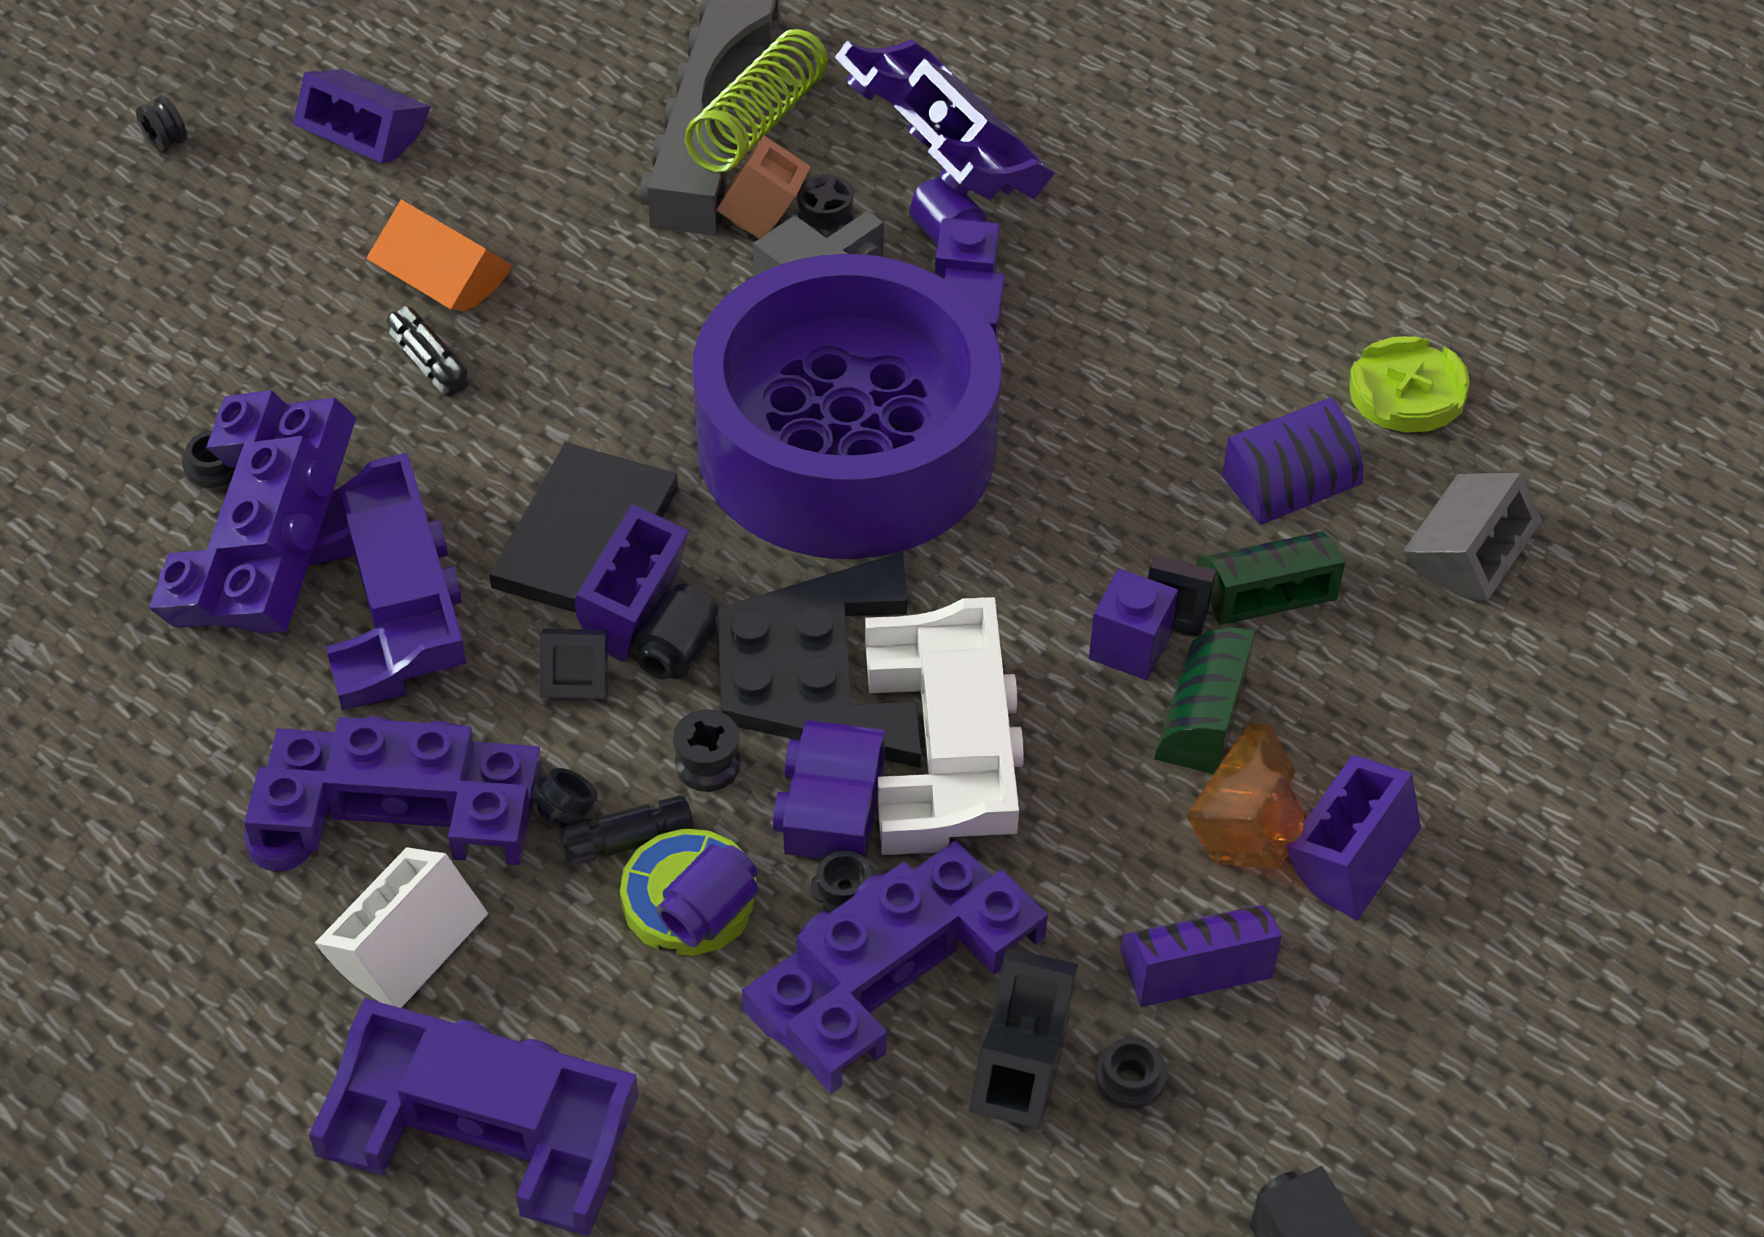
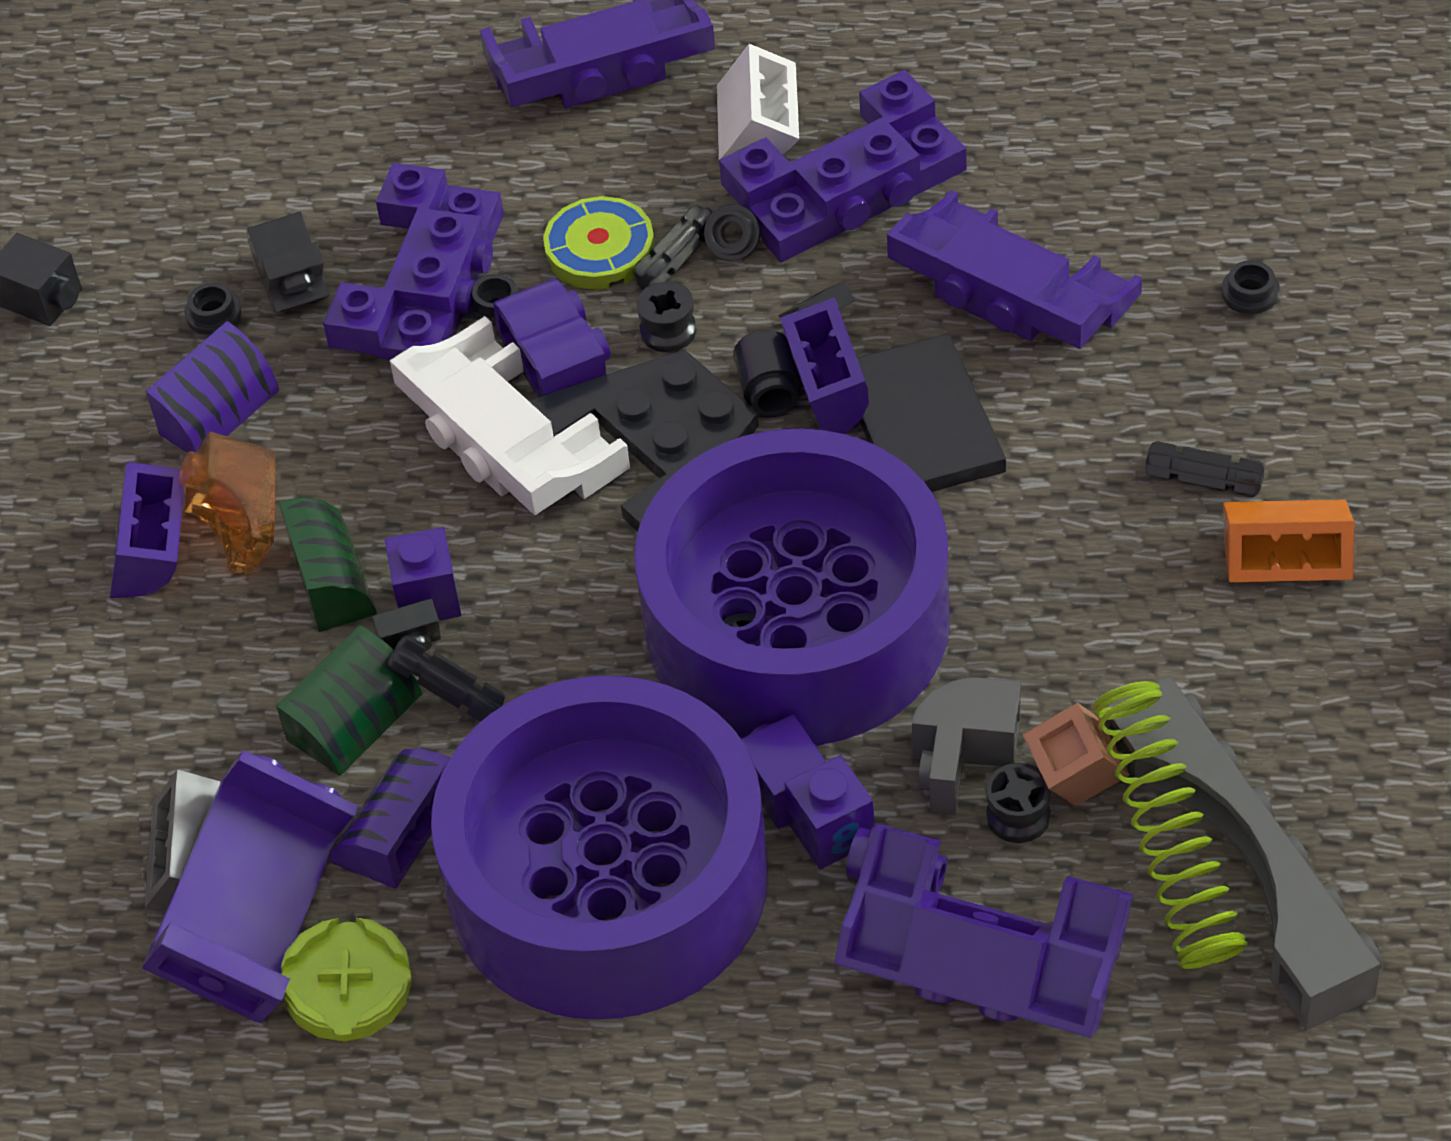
camera: 150 degrees right, 0 degrees up
(269, 518) = (1140, 251): dark purple bracket -> none
(708, 894) = (566, 213): dark purple brick -> none
(1160, 311) = (538, 778): none -> dark purple wheel
(1179, 526) = (445, 678): none -> black axle
(1512, 420) = (248, 886): none -> dark purple panel

